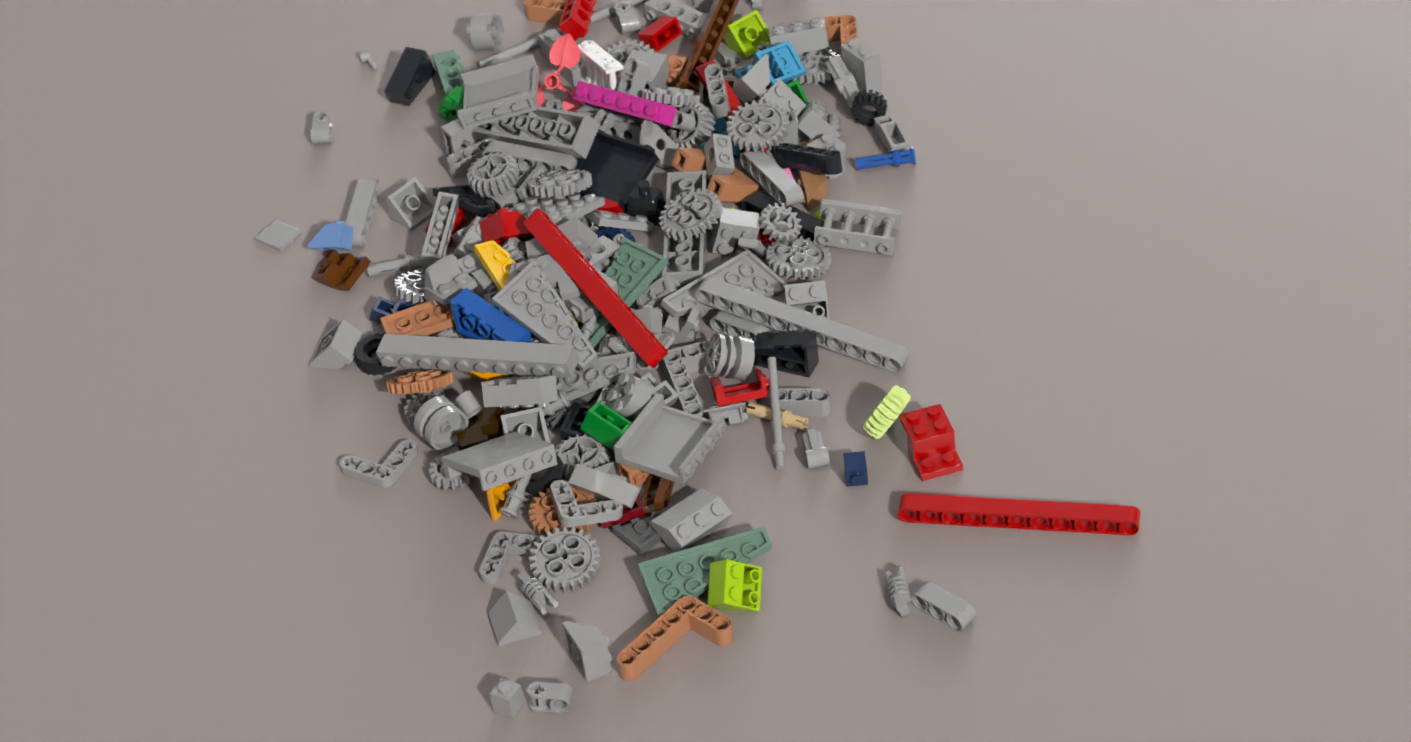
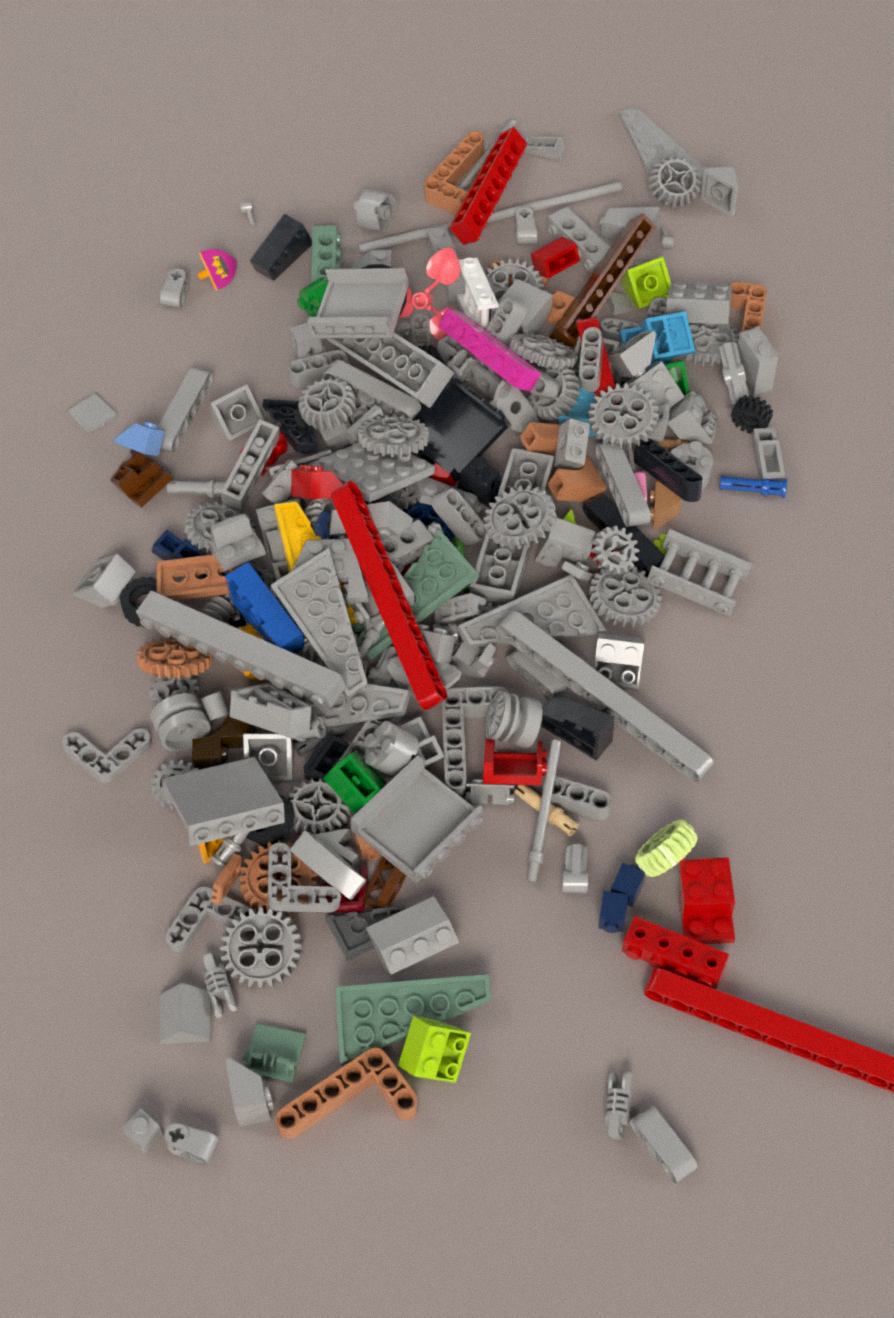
camera: 10 degrees right, 15 degrees up
(356, 102) = (218, 266): none -> dark pink shield
(519, 254) = (321, 528): none -> dark blue arm
(519, 521) = (226, 879): none -> nougat tile
(607, 620) = (274, 1052): none -> sand green hinge
(636, 228) = (459, 516): none -> light grey beam
(863, 442) = (629, 881): none -> dark blue brick
(896, 480) = (674, 953): none -> red brick

